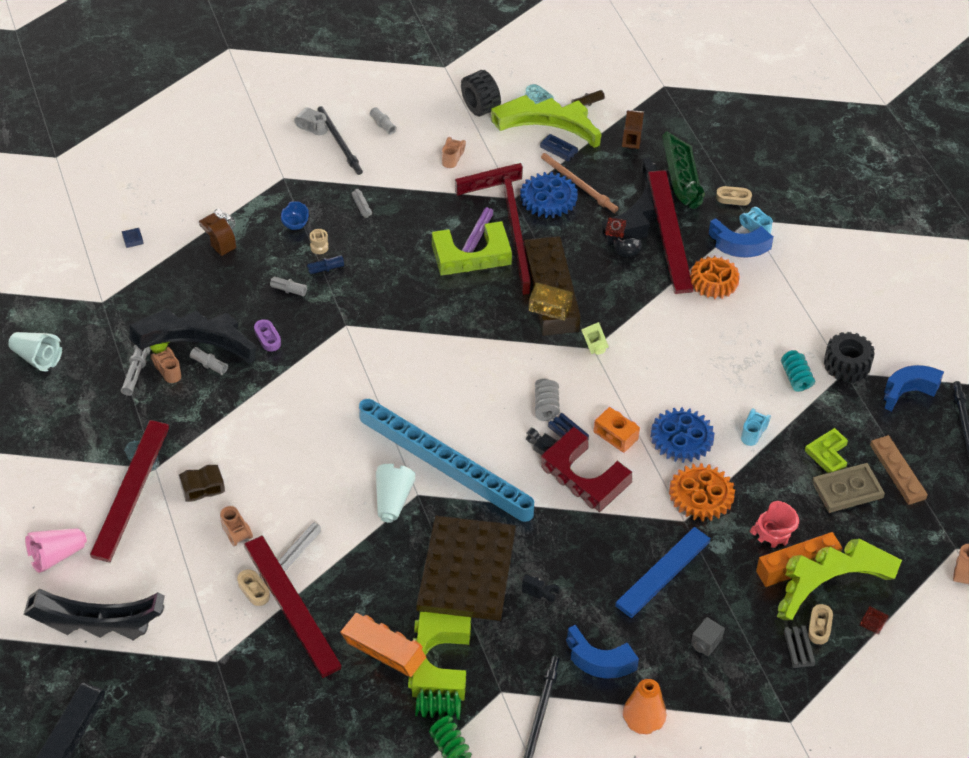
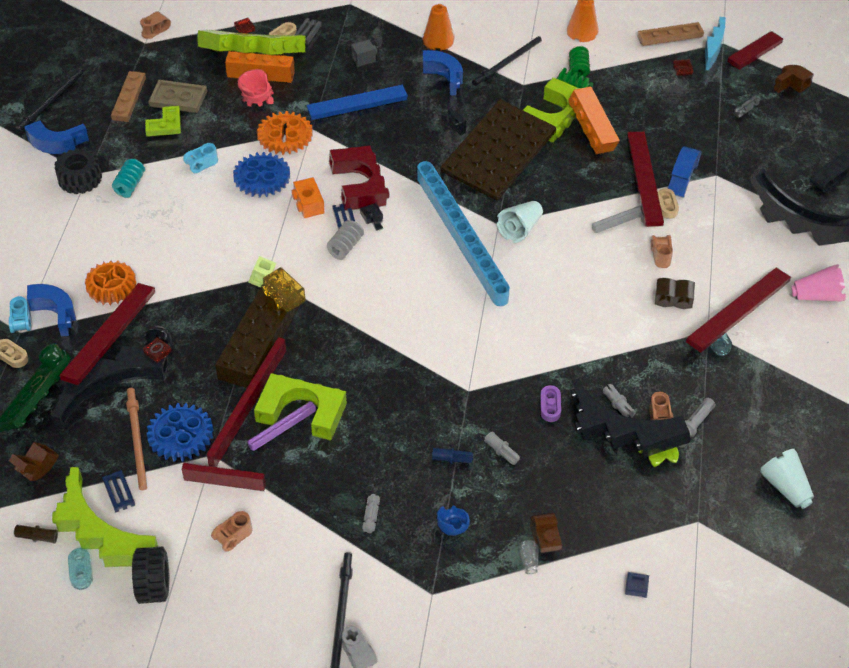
camera: 150 degrees left, 0 degrees up
(251, 635) = (683, 169): none -> blue arch
(319, 241) = (444, 481): tan wheel -> none
(383, 120) = (276, 613): light grey pin -> none

